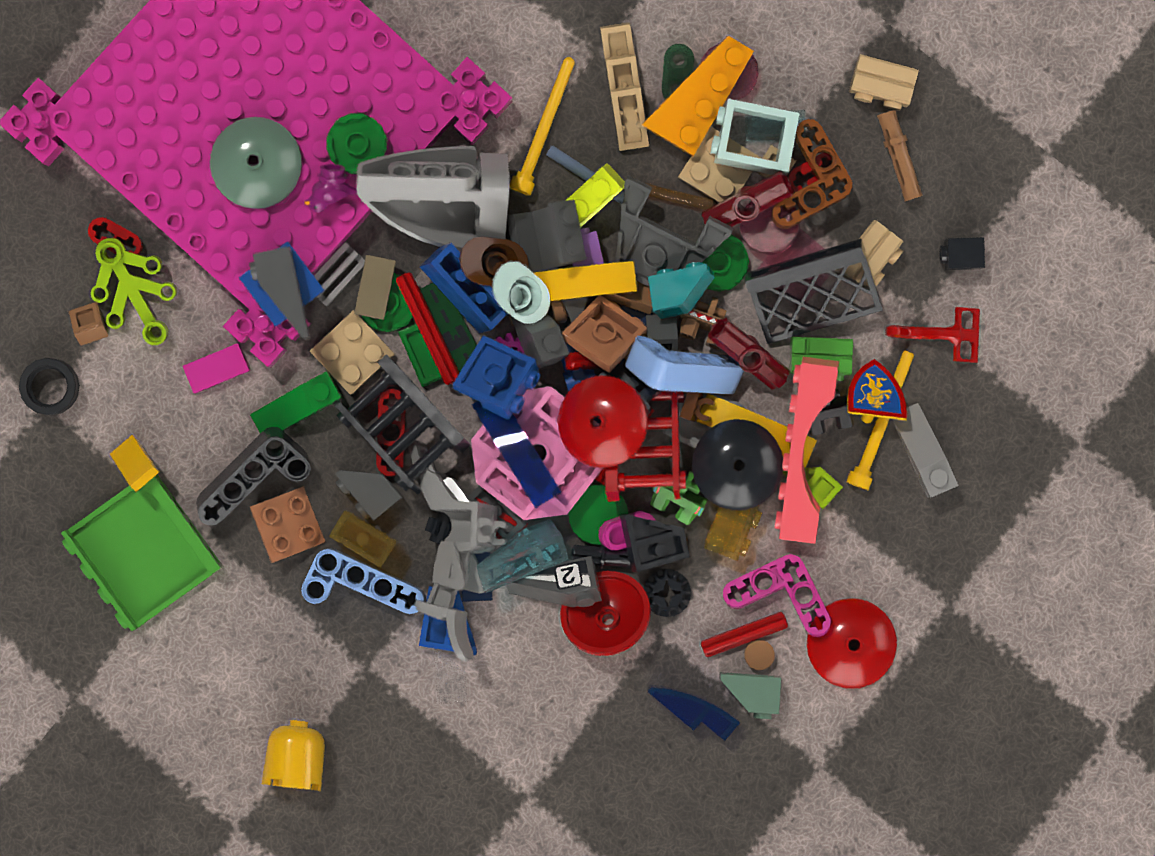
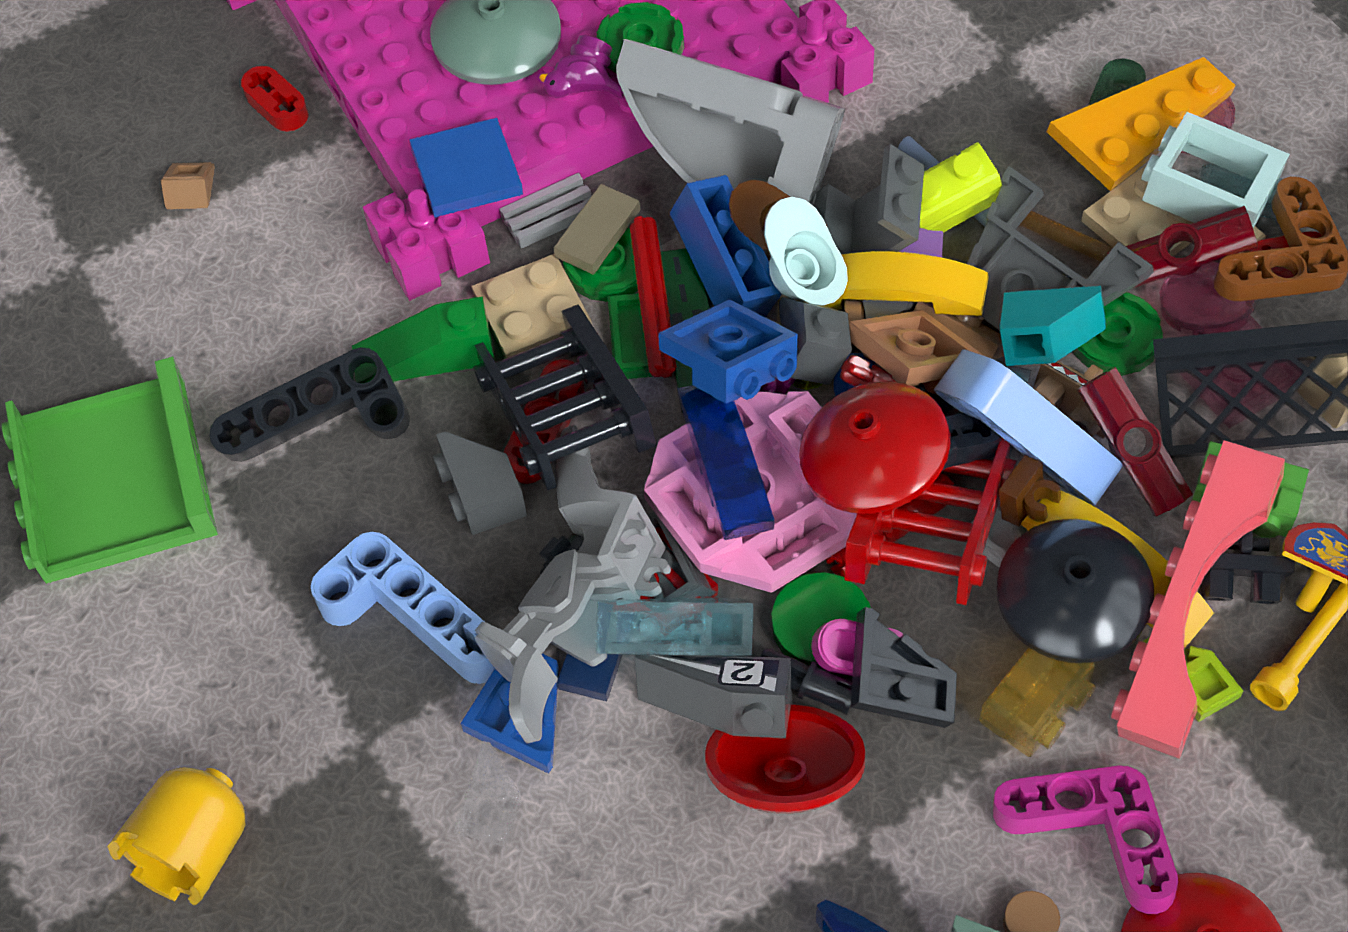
camera: 20 degrees right, 30 degrees down
(30, 400) = (90, 209): black tyre -> none
(130, 286) = (262, 148): lime plant -> none
(134, 463) = (156, 347): yellow tile -> none
(216, 368) = (332, 277): dark pink tile -> none
(279, 280) = (464, 142): dark grey slope -> none
(287, 524) = (333, 495): nougat hinge -> none
(363, 538) = (440, 537): clear yellow brick -> none
(523, 180) = (855, 164): yellow piece -> none
(624, 86) = (1035, 93): tan slope -> none
(677, 582) = (915, 788): black gear -> none
(690, 502) = (977, 644): bright green hips -> none
(744, 634) = (1014, 876): red axle -> none

